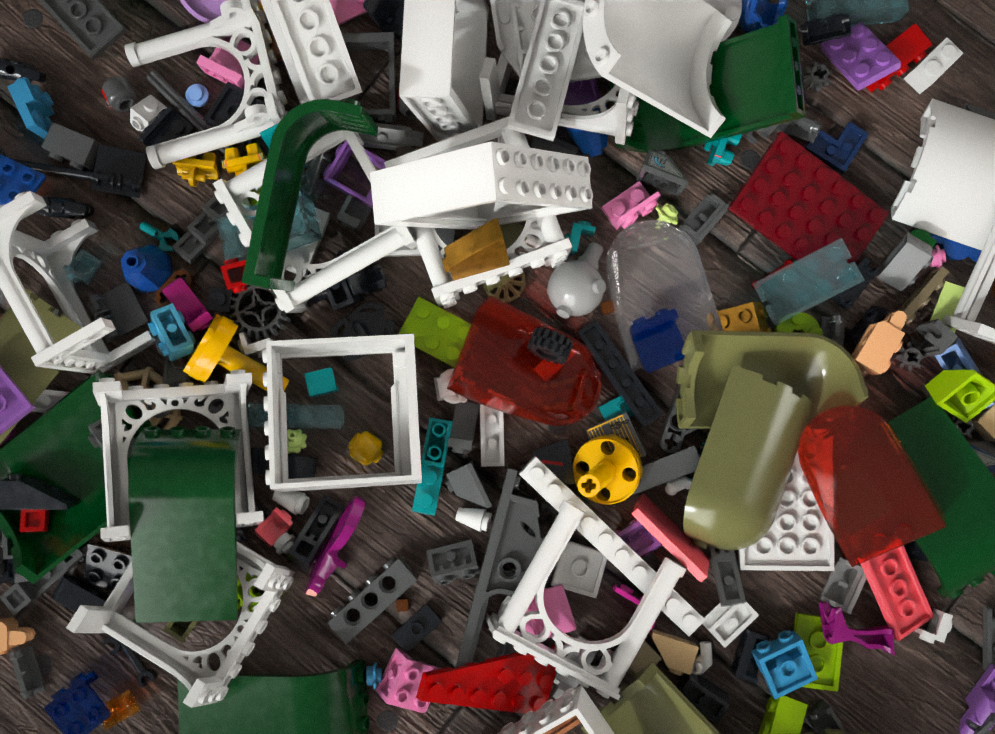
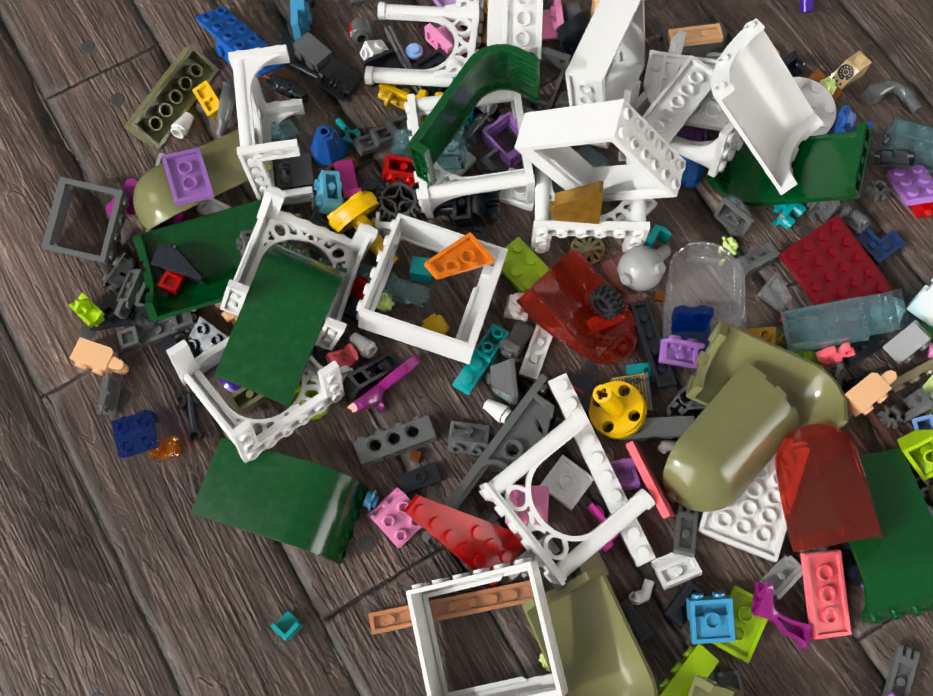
camera: 20 degrees right, 15 degrees down
(258, 437) = (358, 287): none -> red plate
(361, 371) = (459, 257): none -> orange wing
(627, 206) = (704, 230): bright pink bracket -> none
(654, 378) = (679, 352): none -> medium lavender bracket
(675, 651) = (621, 576): tan slope -> none
(737, 251) = (775, 292): none -> clear slope
(827, 309) = (831, 355): none -> coral plate
(872, 238) = (885, 311): none -> clear light blue slope
(937, 627) = (852, 644): white bracket -> none

